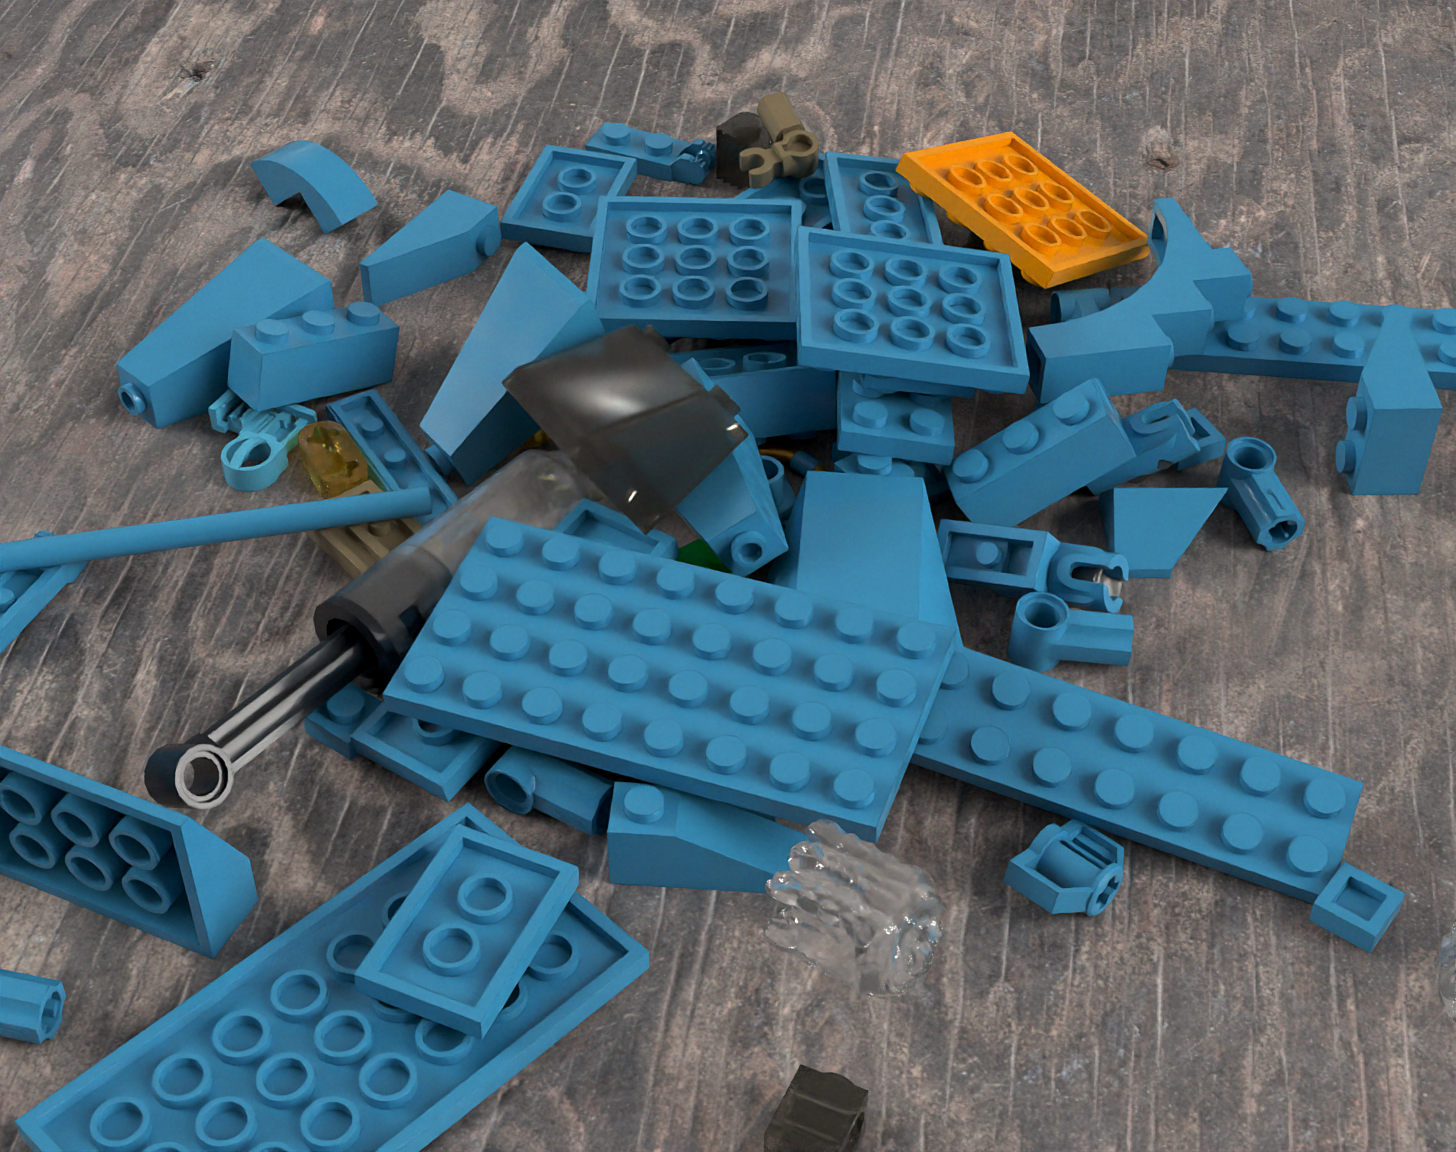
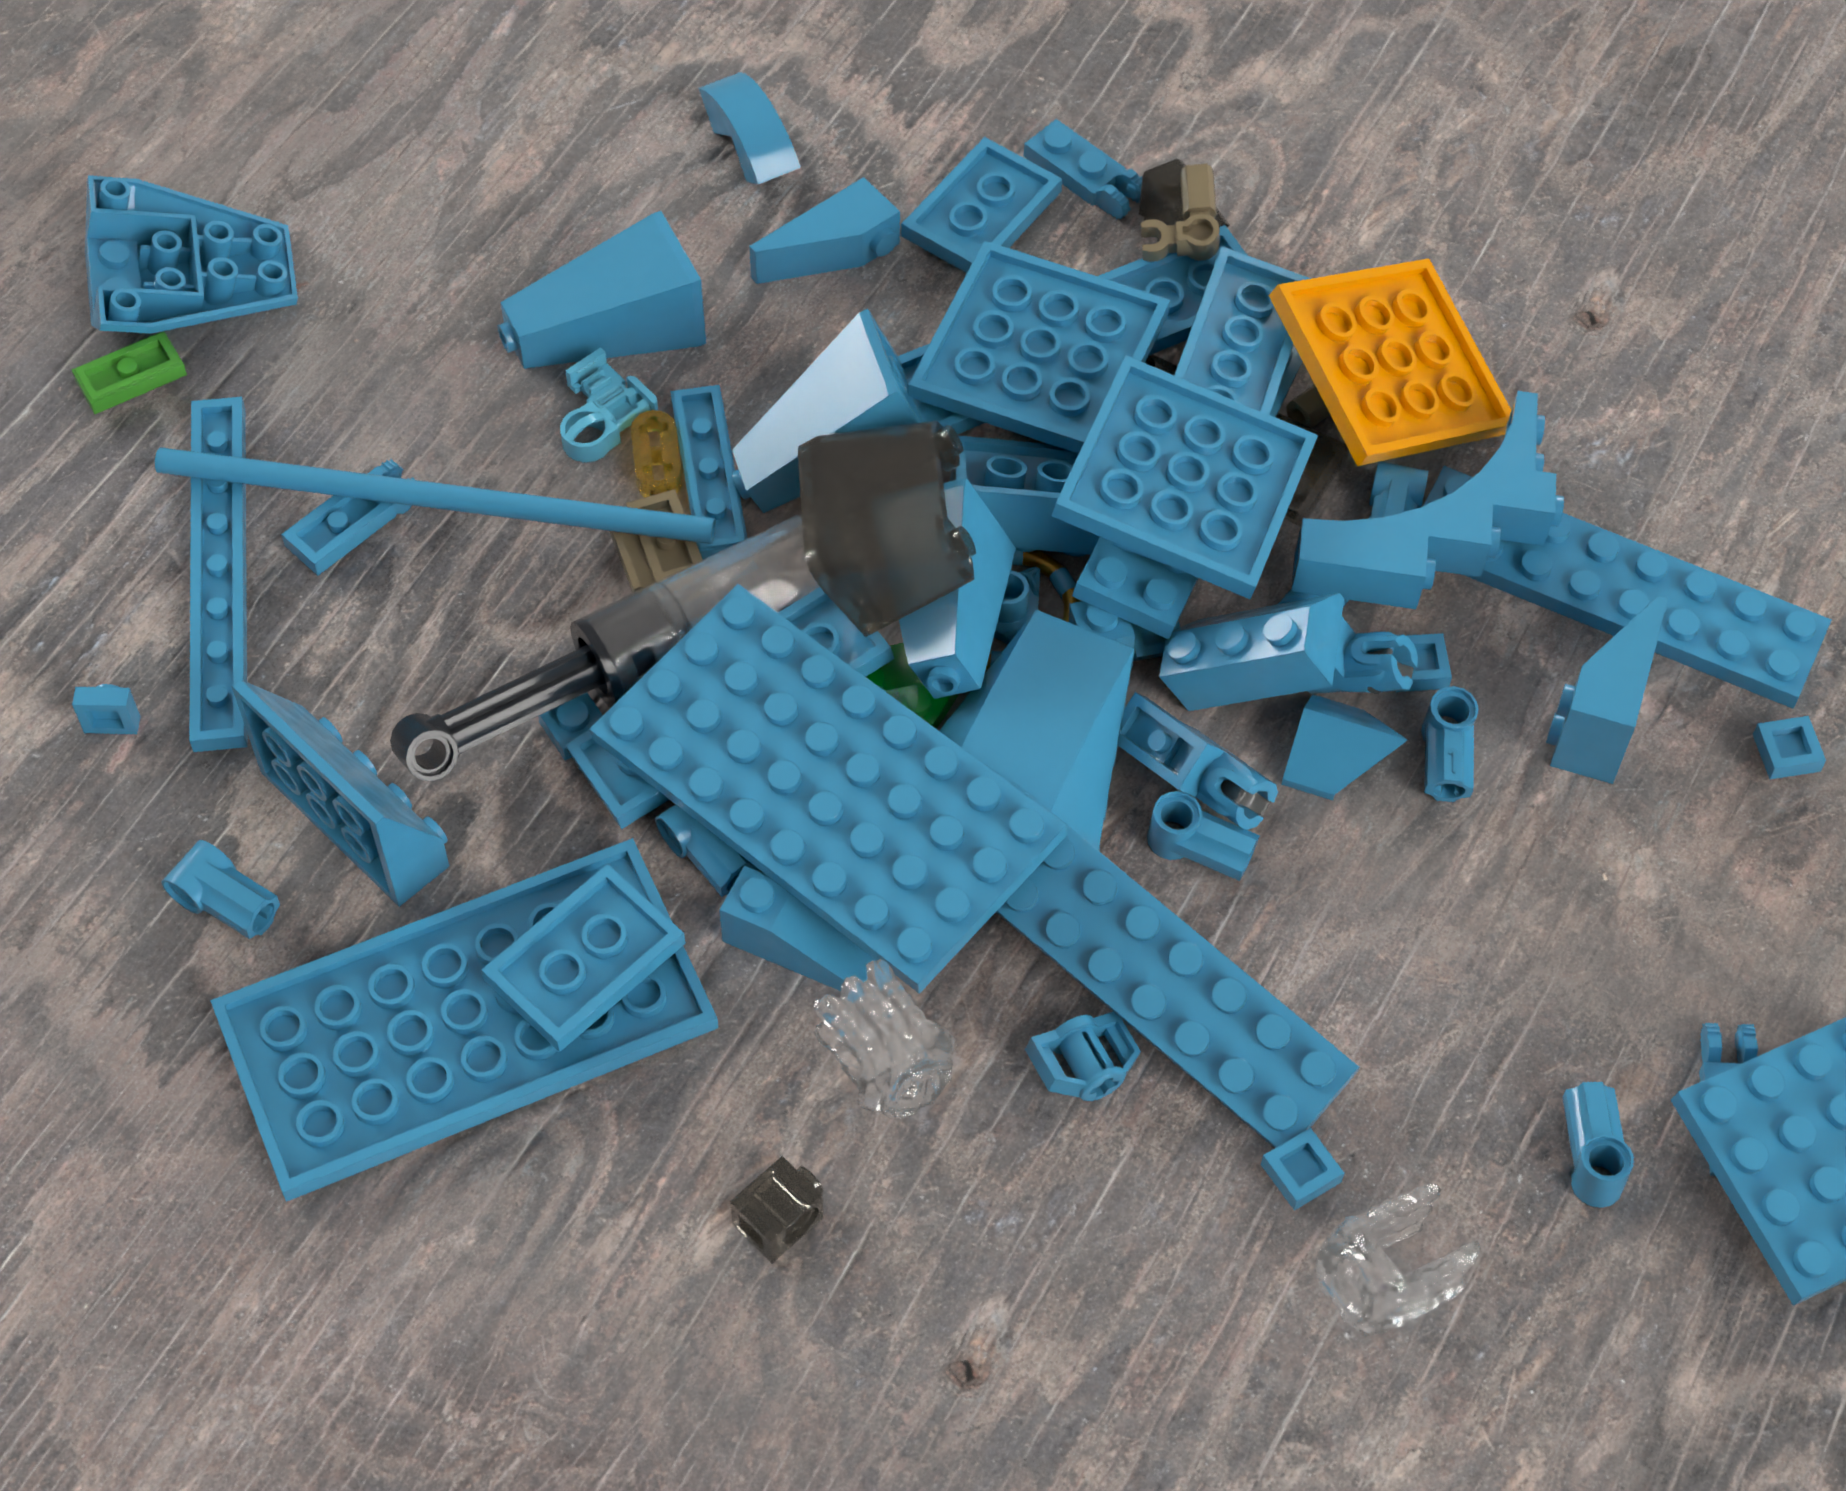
camera: 20 degrees right, 15 degrees up
(312, 355) = (670, 343): dark azure brick -> none

